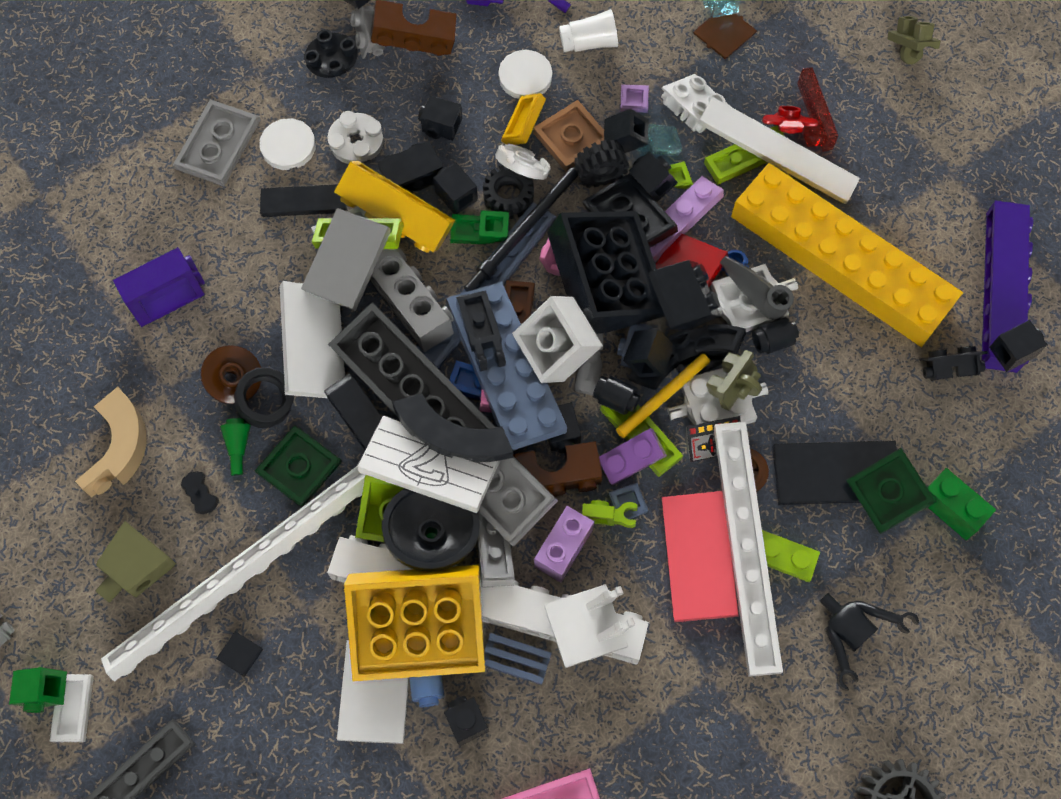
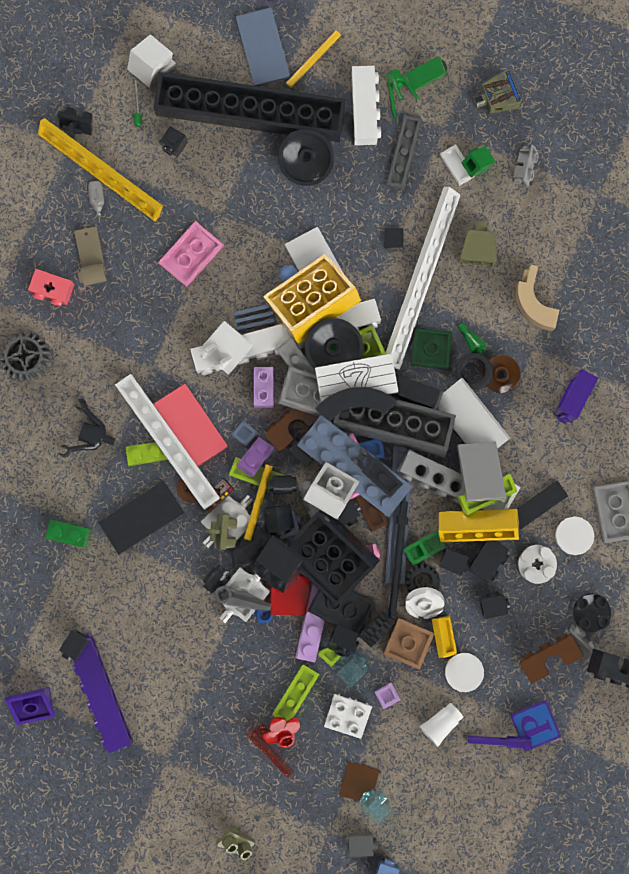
camera: 150 degrees right, 15 degrees up
(199, 493) = (473, 303): black piece -> none
(465, 720) = (259, 270): black brick -> none
(603, 514) = (254, 416): lime plate -> none
(628, 129) = (374, 657): black brick -> none
(778, 150) = (277, 704): white tile -> none
(845, 254) = (202, 656): yellow brick -> none
(891, 491) = (106, 517): dark green tile -> none
(966, 362) = (115, 619): black hinge -> none

